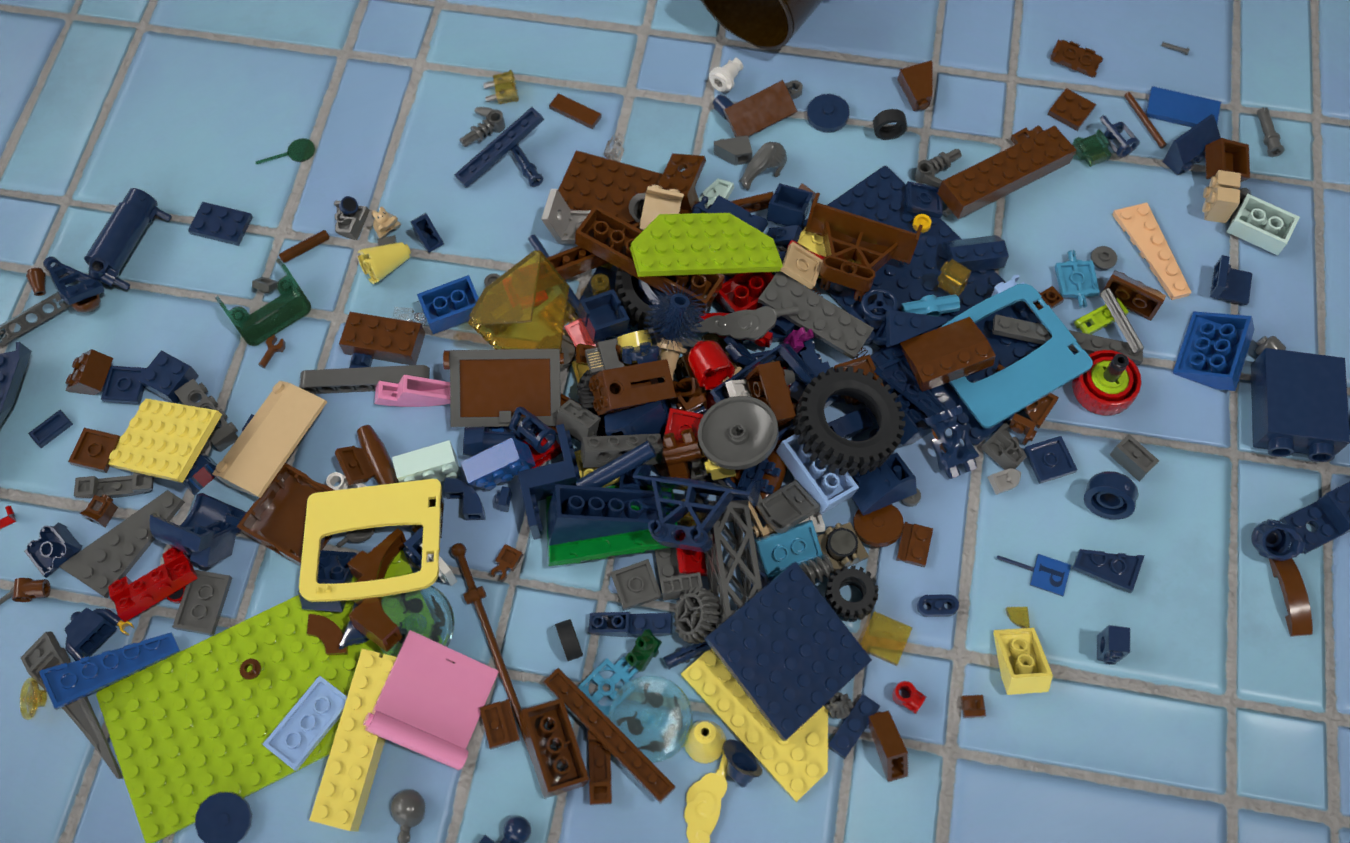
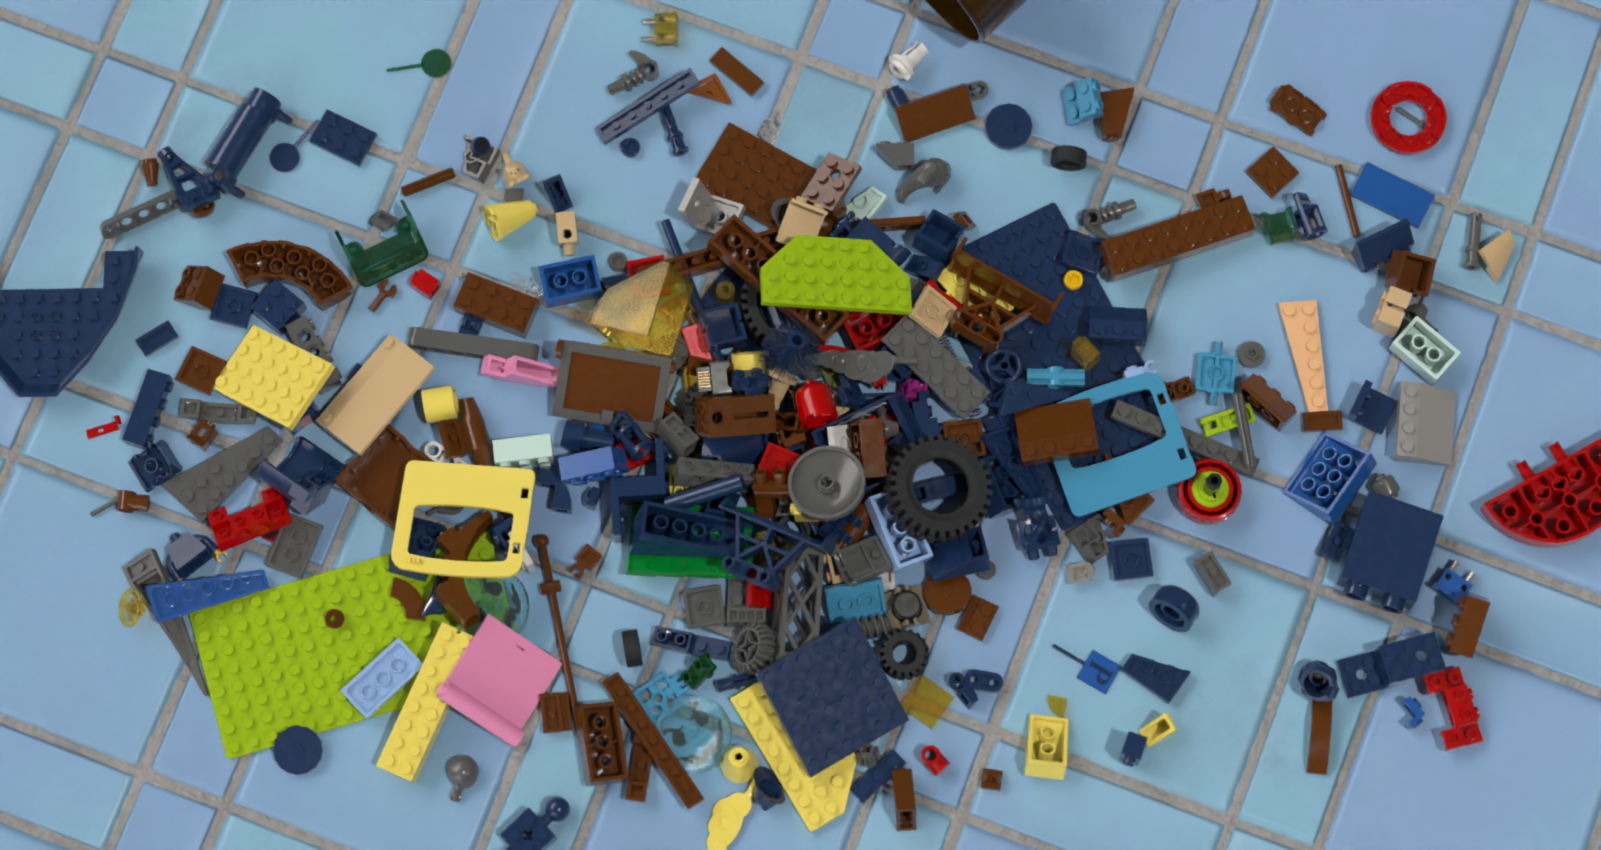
camera: 10 degrees right, 10 degrees up
(41, 495) = (147, 409): none -> dark blue brick
(169, 247) = (286, 156): none -> dark blue piece
(180, 338) = (291, 265): none -> reddish brown brick
(311, 332) = (425, 284): none -> red brick
(336, 434) = (440, 403): none -> light yellow piece
(440, 260) = (566, 224): none -> tan torso
(489, 186) = (630, 147): none -> dark blue tile
(554, 128) = (712, 89): none -> dark orange tile
(890, 79) = (1083, 101): none -> dark azure plate
(923, 621) = (964, 693): none -> dark blue plate
(1133, 617) = (1158, 729): none -> light yellow slope
(1178, 28) = (1415, 93): none -> red plate
(1188, 303) = (1322, 421): none -> reddish brown tile
(1242, 407) = (1336, 542): none -> dark blue plate
(1282, 288) = (1424, 424): none -> light grey slope
(1294, 136) = (1497, 253): none -> tan slope

